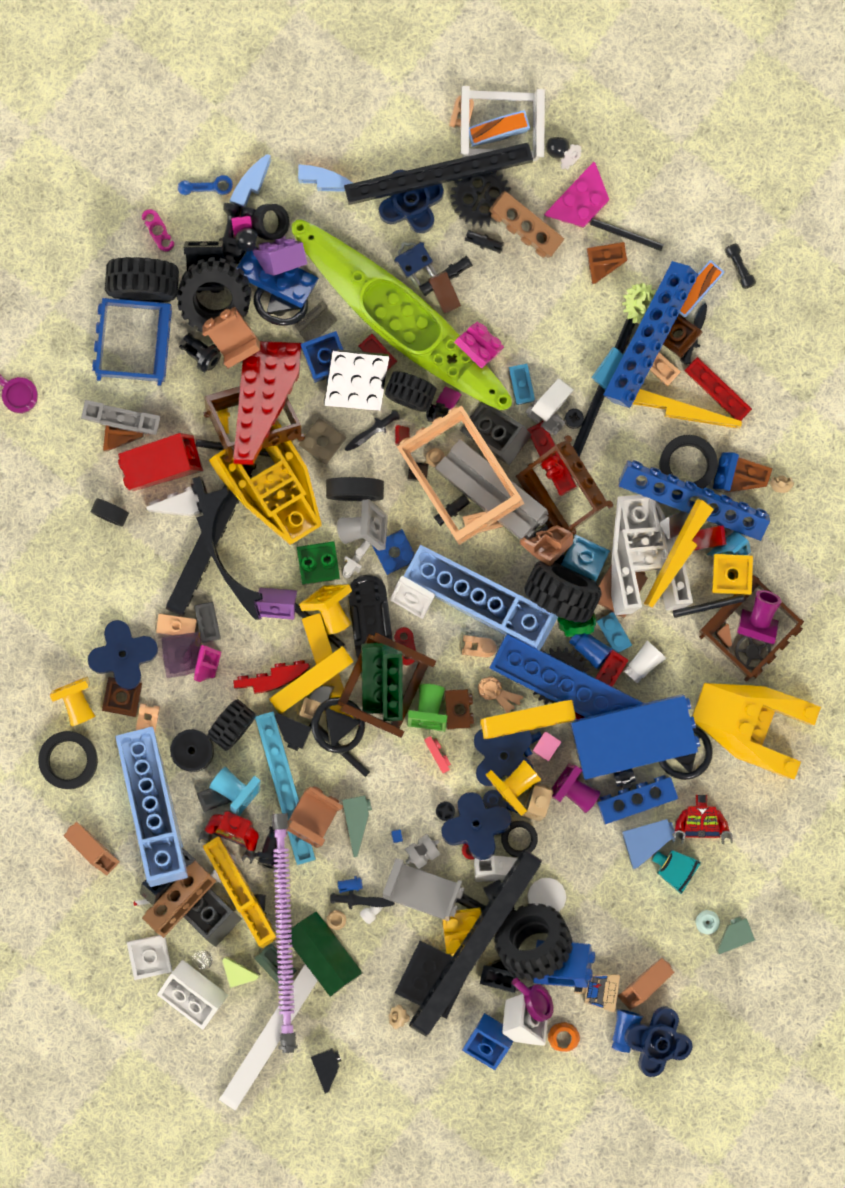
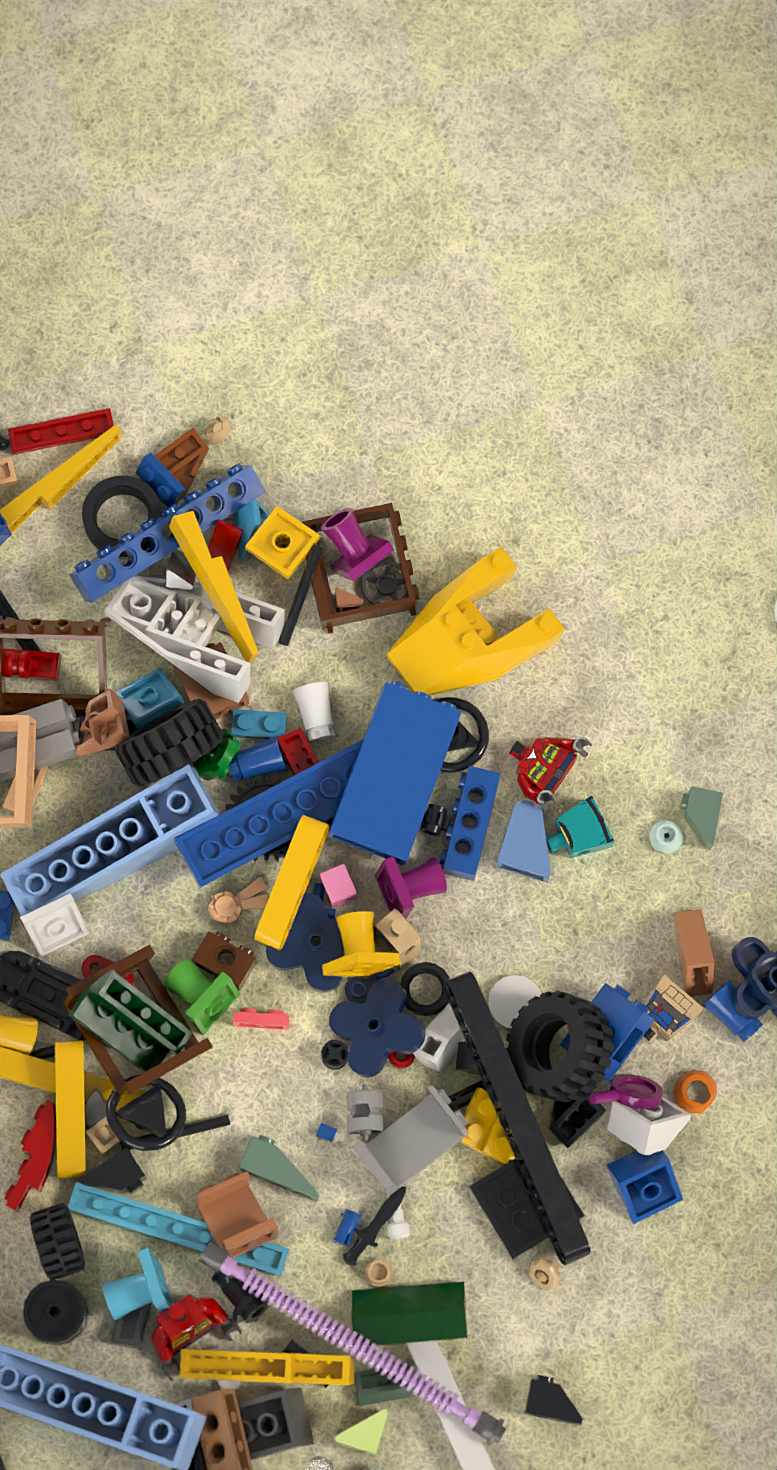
camera: 60 degrees left, 10 degrees down
(486, 646) = (174, 881): light nougat plate -> none

